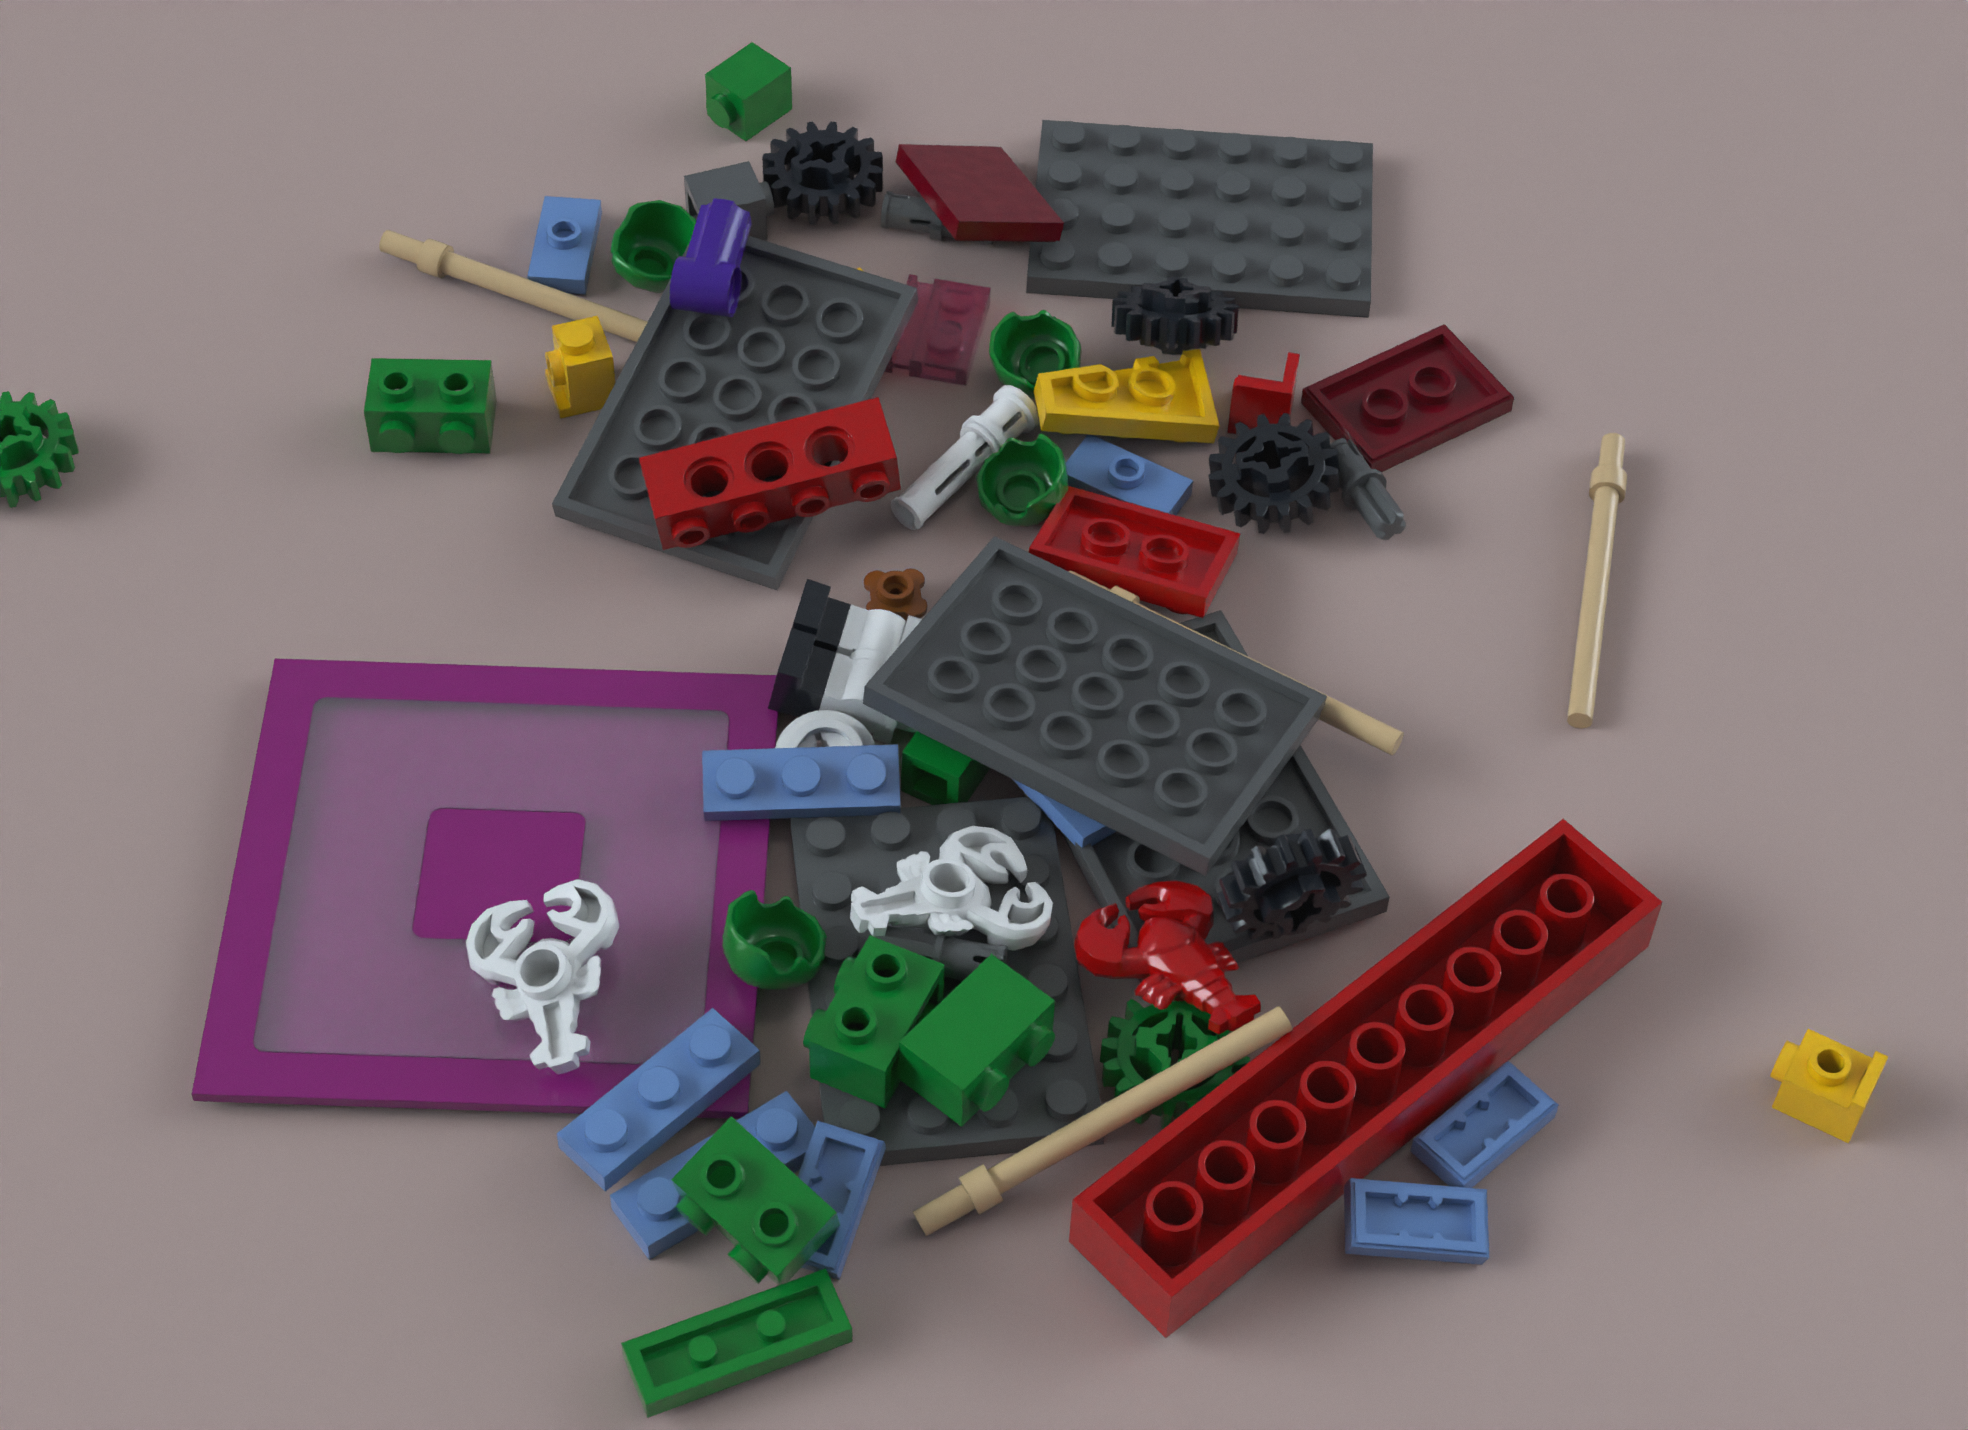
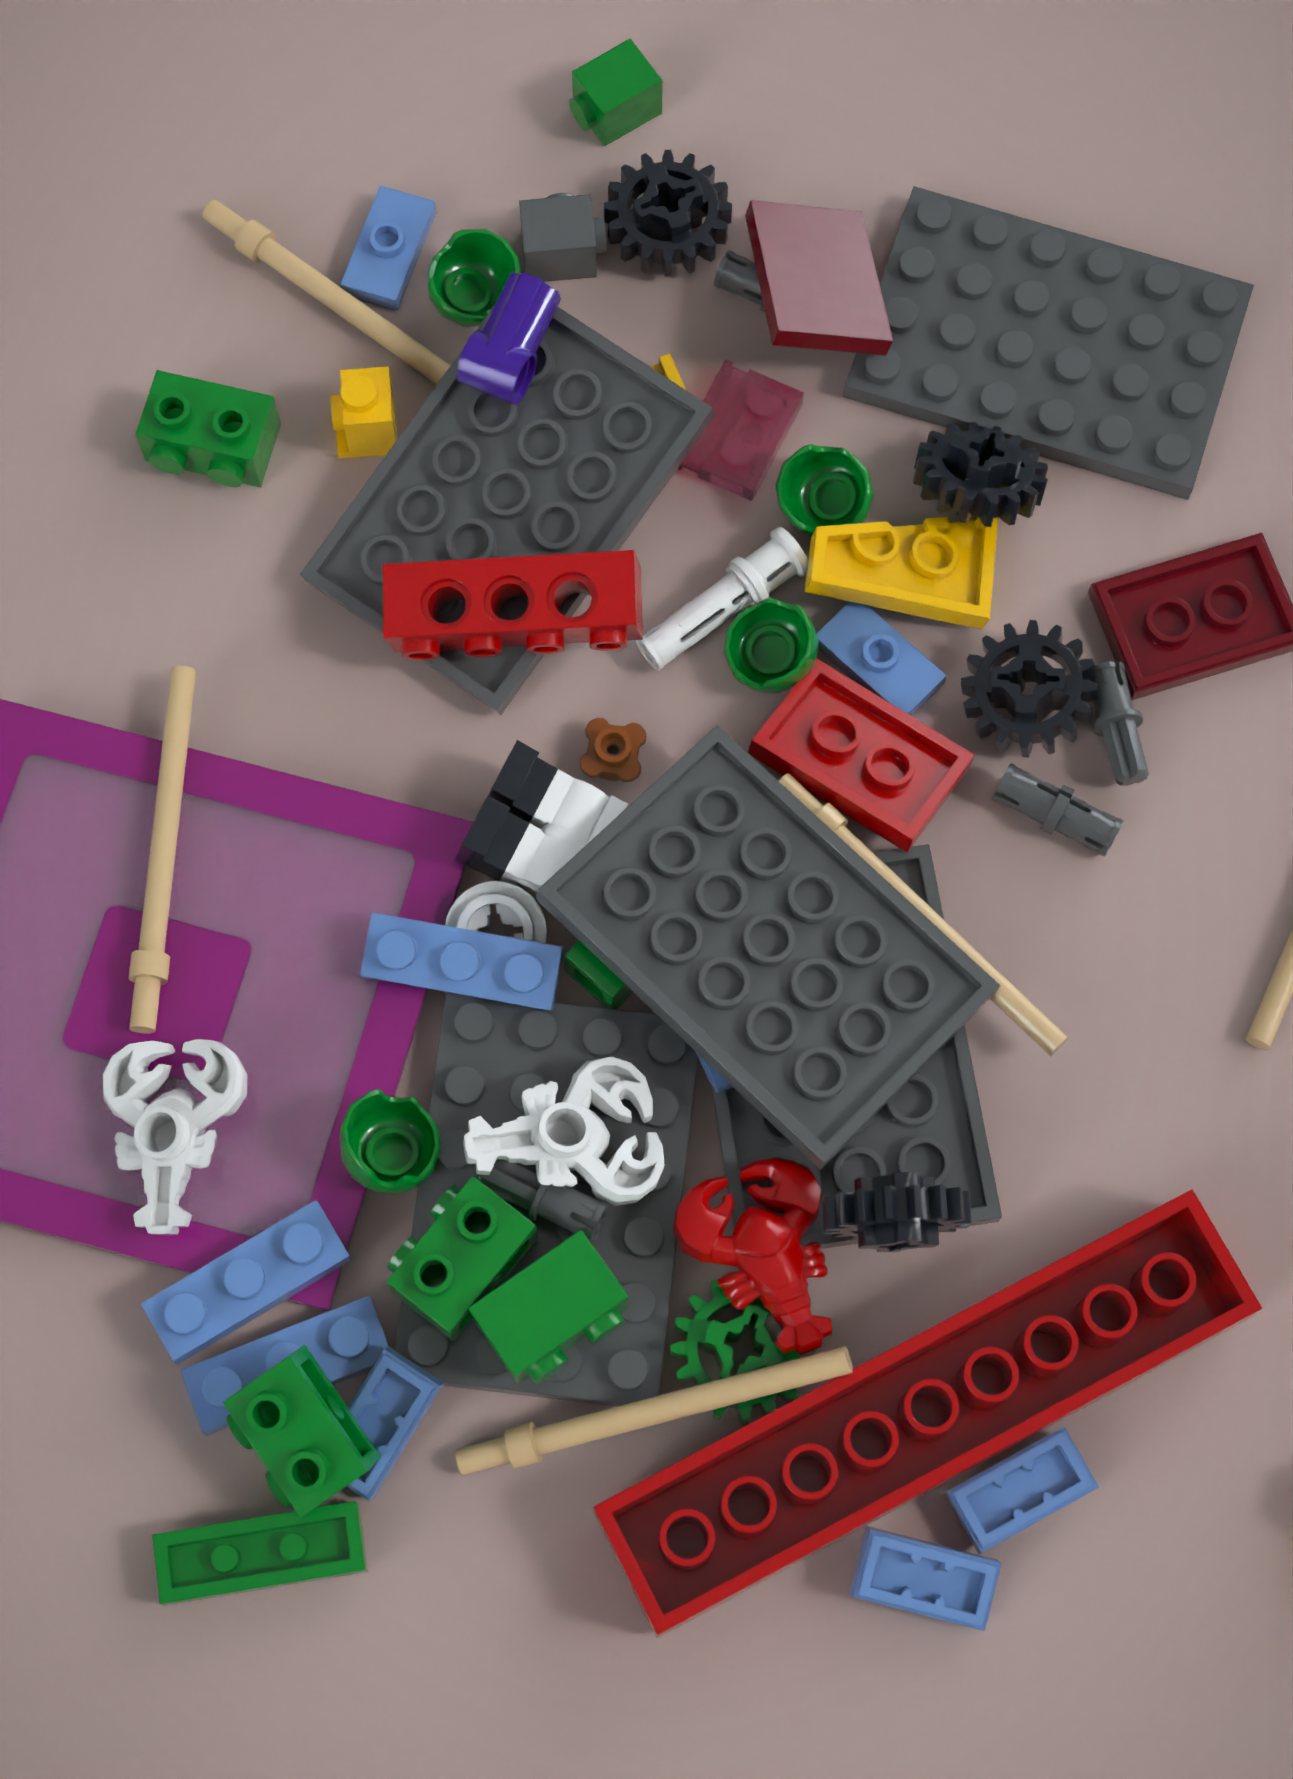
camera: 15 degrees right, 20 degrees up
(487, 840) = (150, 963): none -> tan bar
(1262, 396) = (1045, 592): red panel -> none
(1330, 566) = (1057, 809): none -> dark grey pin

